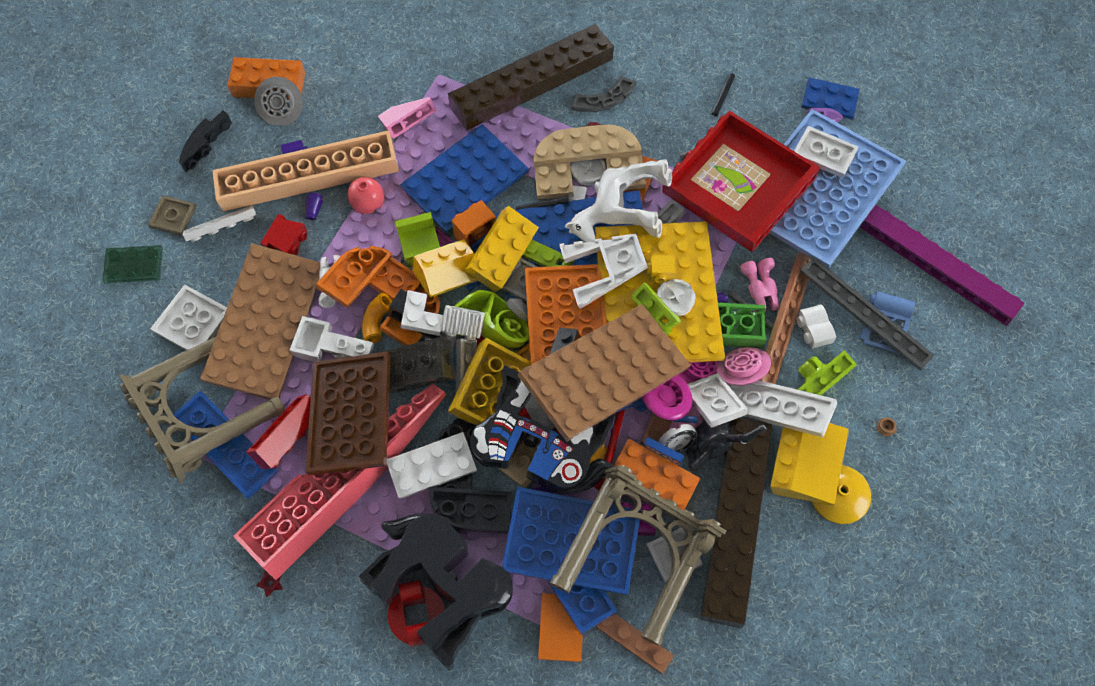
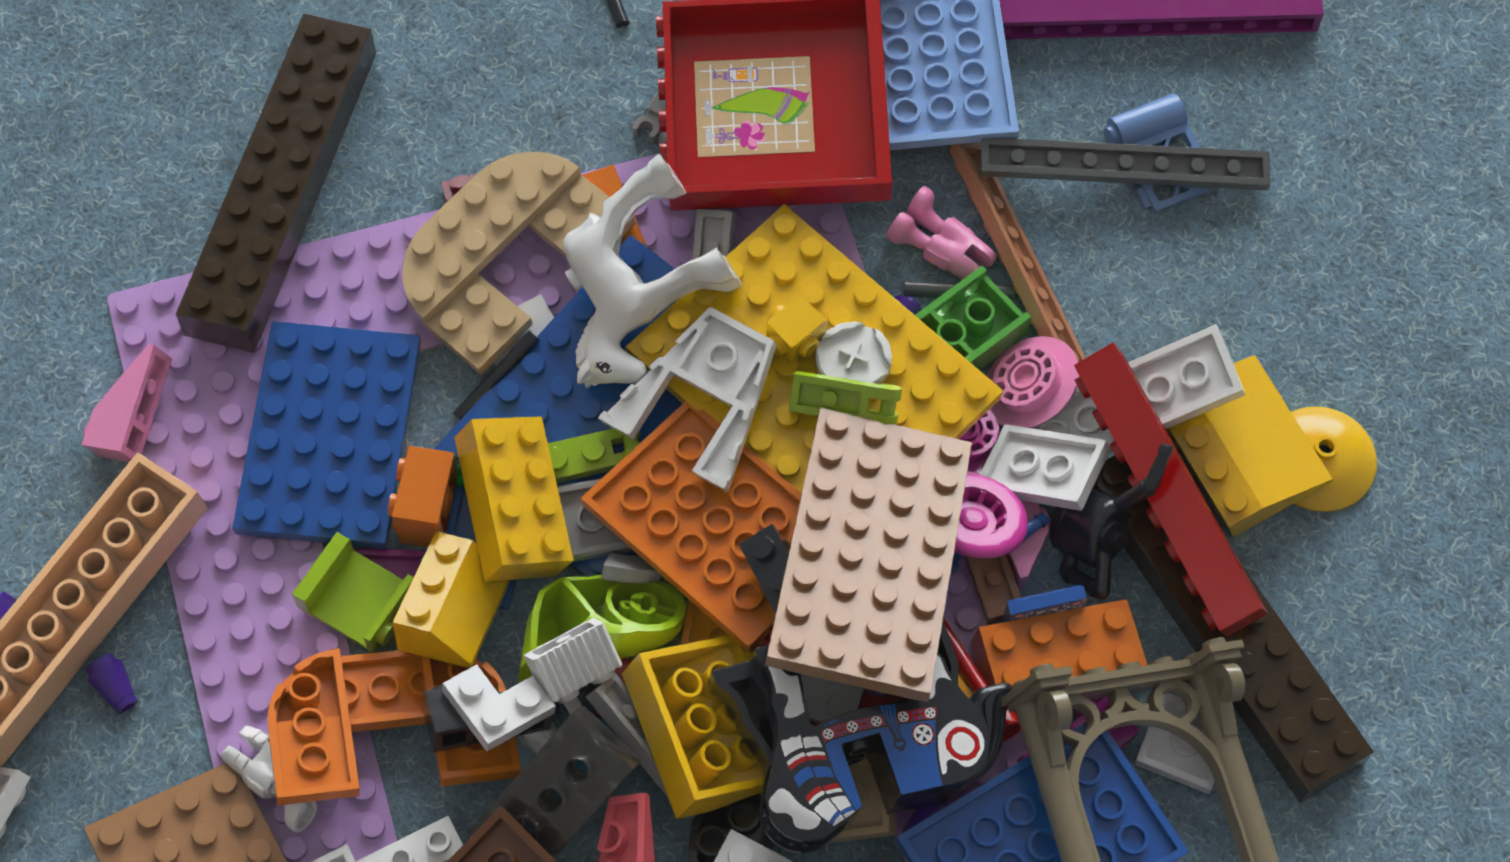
camera: 45 degrees left, 0 degrees up
(285, 235) = (117, 771): red hips -> none
(365, 195) = (191, 593): coral cylinder -> none
(373, 316) = (401, 778): light orange cylinder -> none
(588, 171) = (520, 267): white tile -> none
(613, 97) = (431, 129): dark grey tile -> none
(679, 438) = (1042, 570): white tile -> none
(754, 455) = (1178, 503): none -> red brick
(816, 326) = (1073, 239): white brick -> none
(822, 377) = (1149, 307): lime plate -> none
(890, 423) = (1301, 303): medium nougat plate -> none

